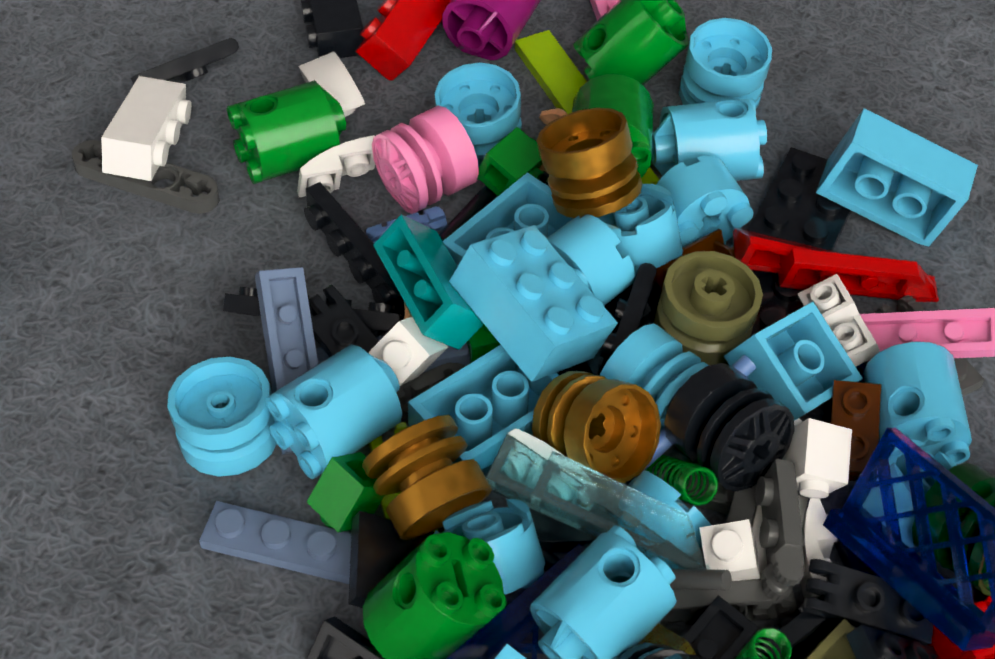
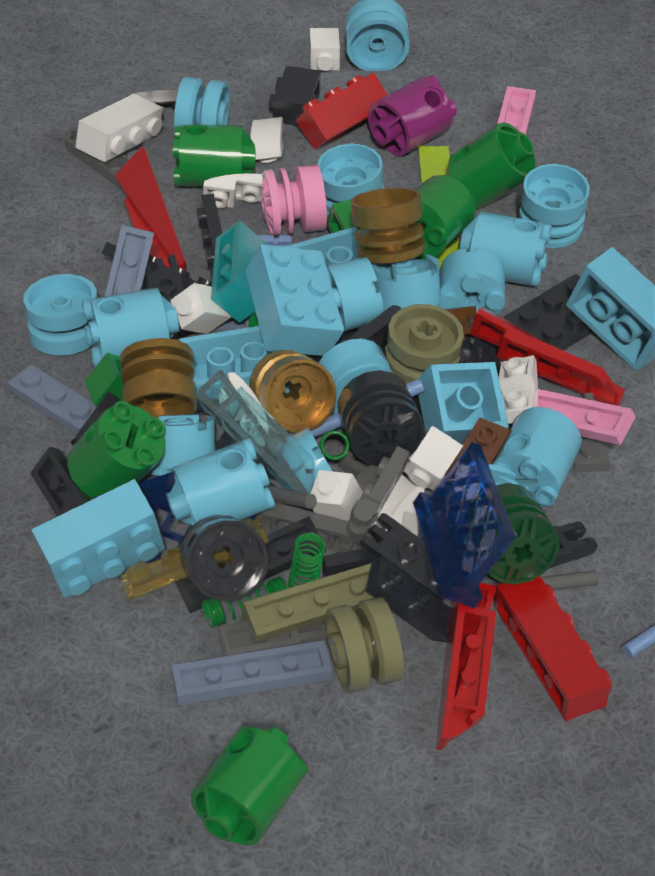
camera: 25 degrees right, 5 degrees down
(242, 225) = (146, 207): none -> red wedge
(245, 75) = (202, 104): none -> medium azure wheel

